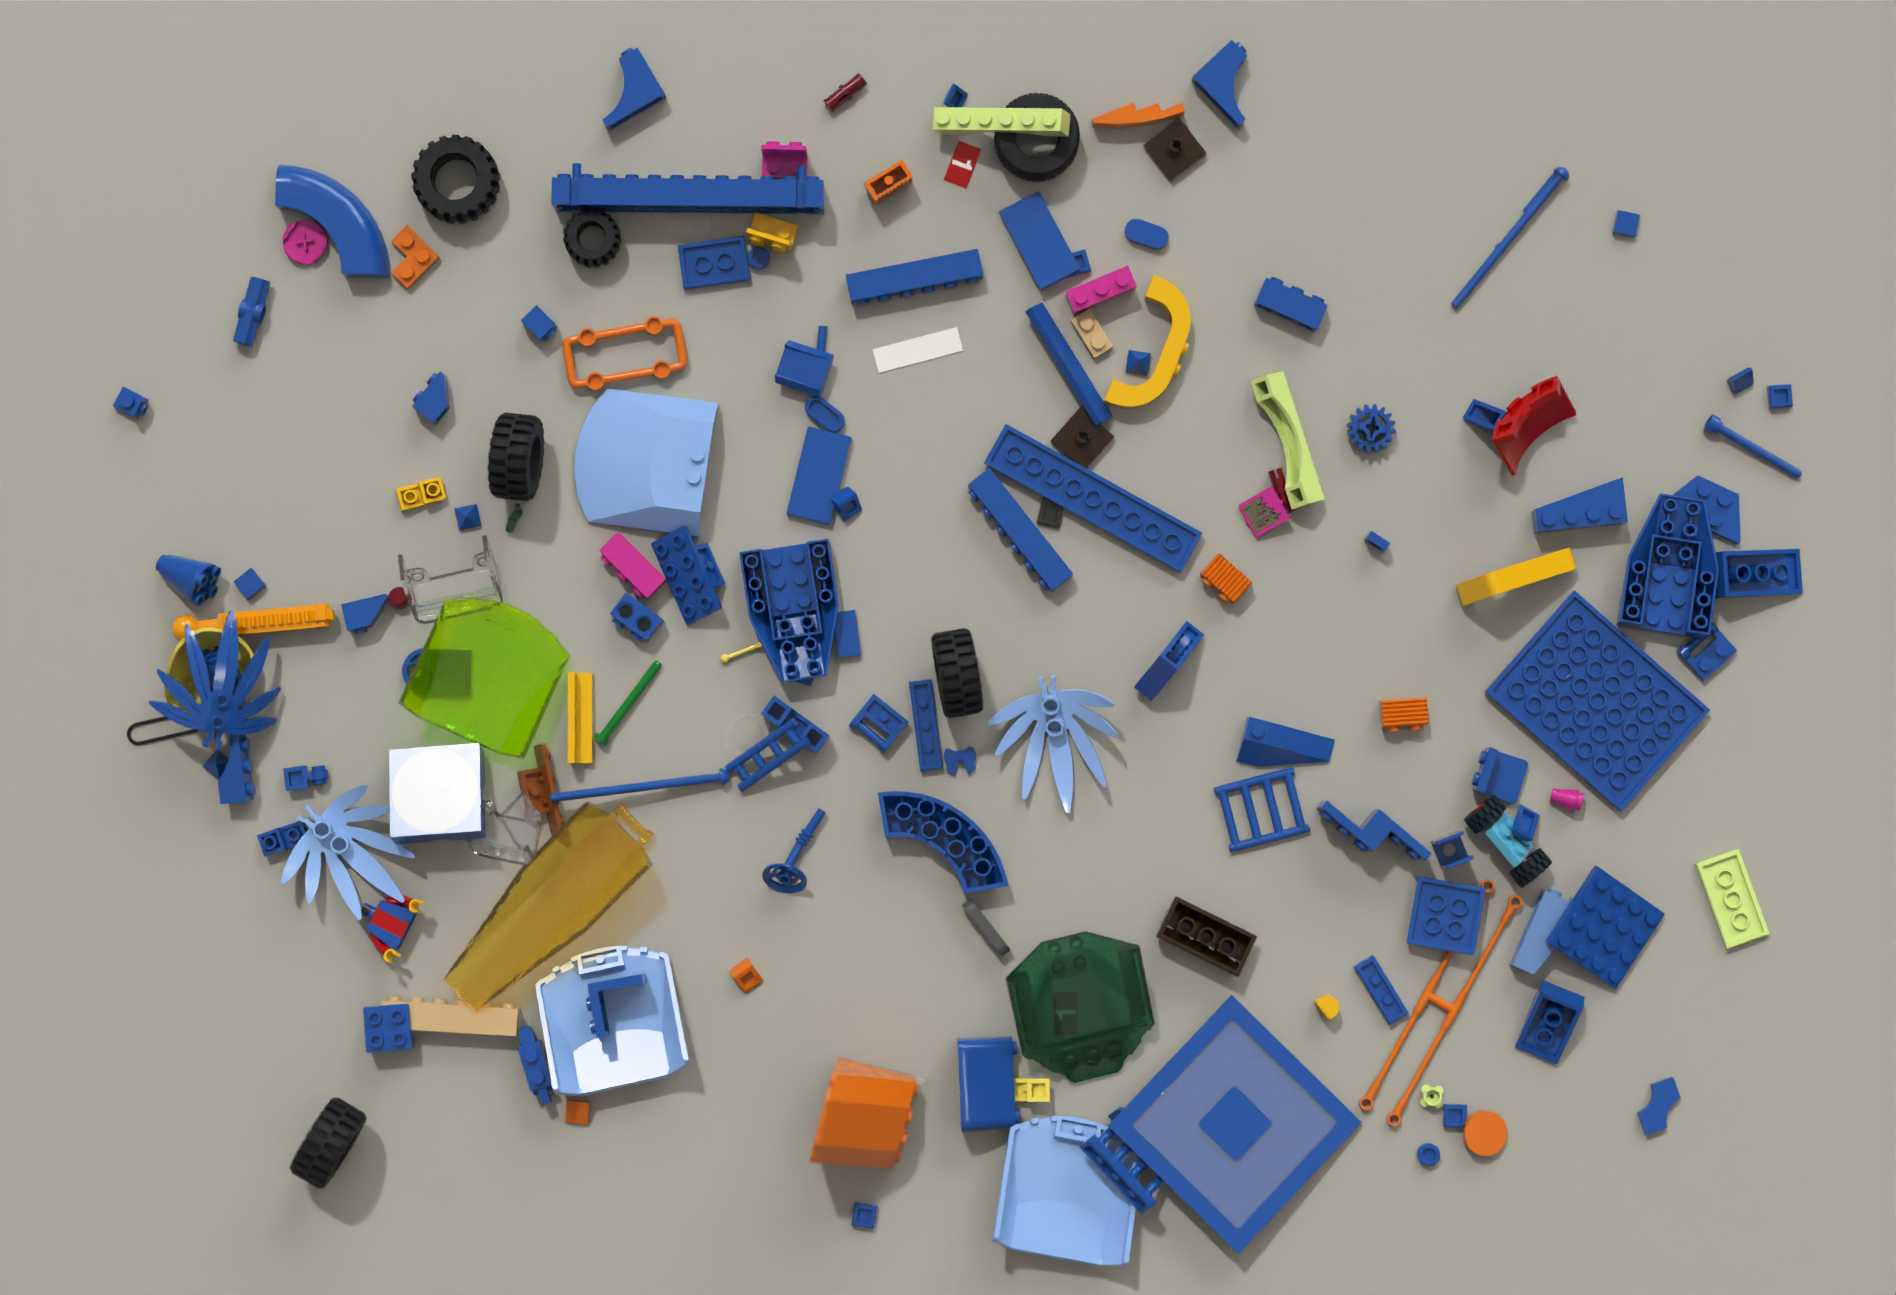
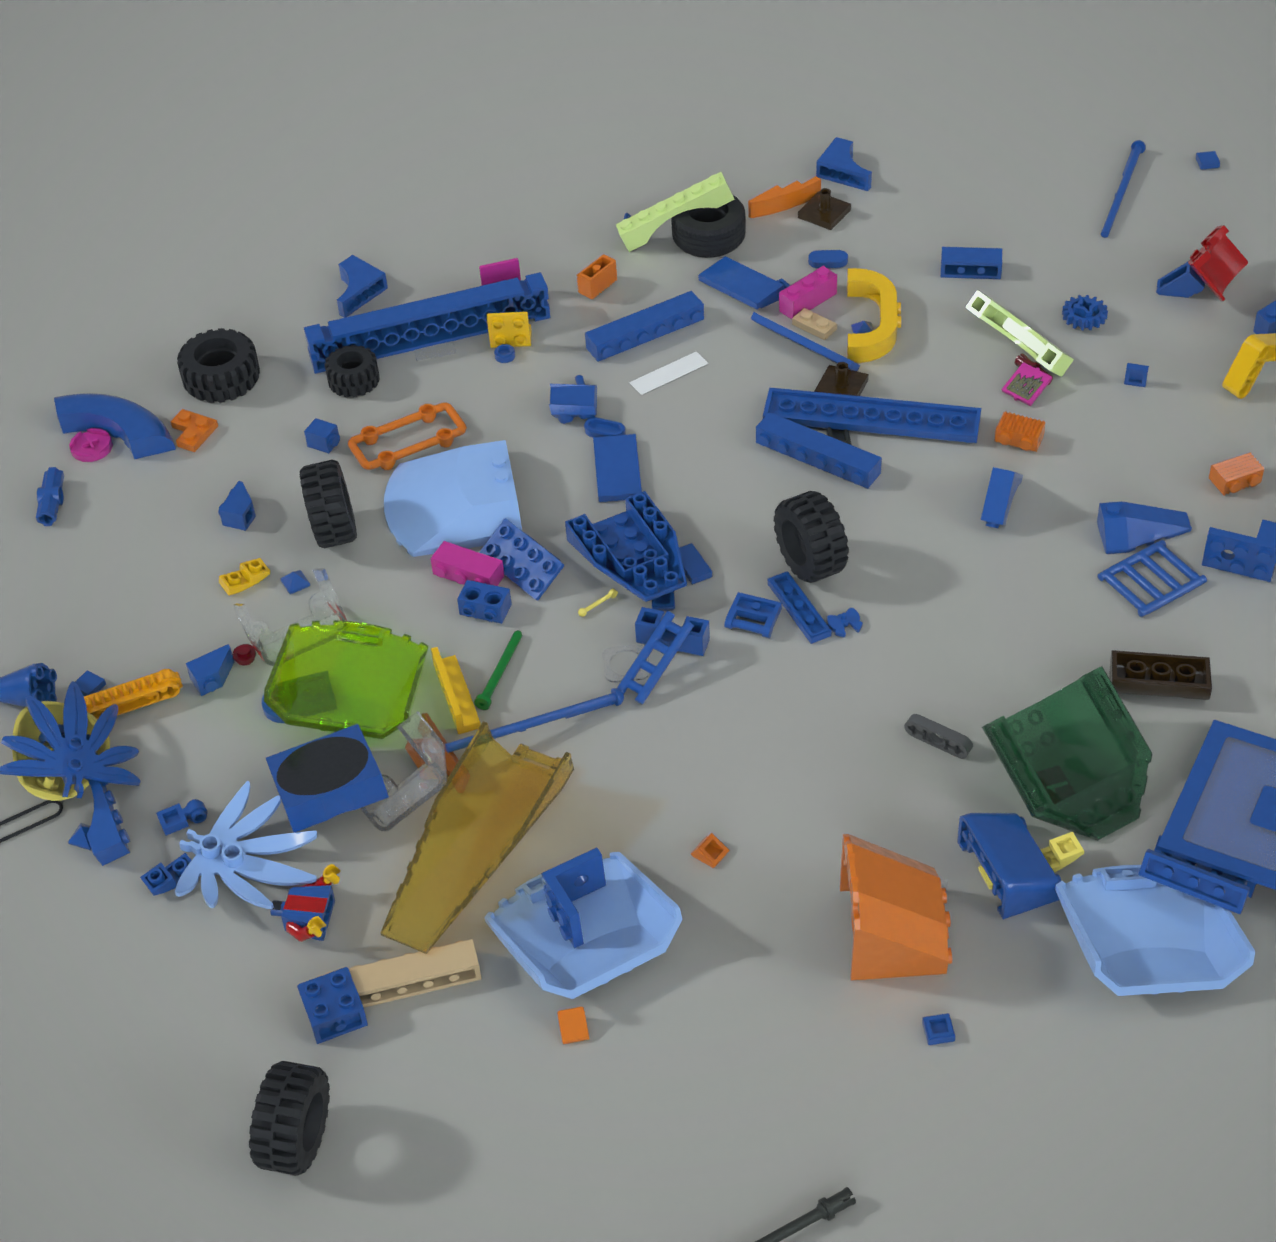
camera: 10 degrees left, 40 degrees down
(511, 522) = (339, 572): clear green piece -> none
(535, 1064) = (510, 989): blue hinge -> none
(714, 263) = (466, 366): blue tile -> none
(787, 869) = (715, 743): blue dish -> none
(845, 92) = (543, 239): dark red pin -> none
(846, 503) = (651, 476): blue slope -> none
(946, 831) = (860, 673): blue brick -> none
(962, 164) = (654, 262): red sticker -> none
(1054, 715) = (918, 562): light blue plant -> none

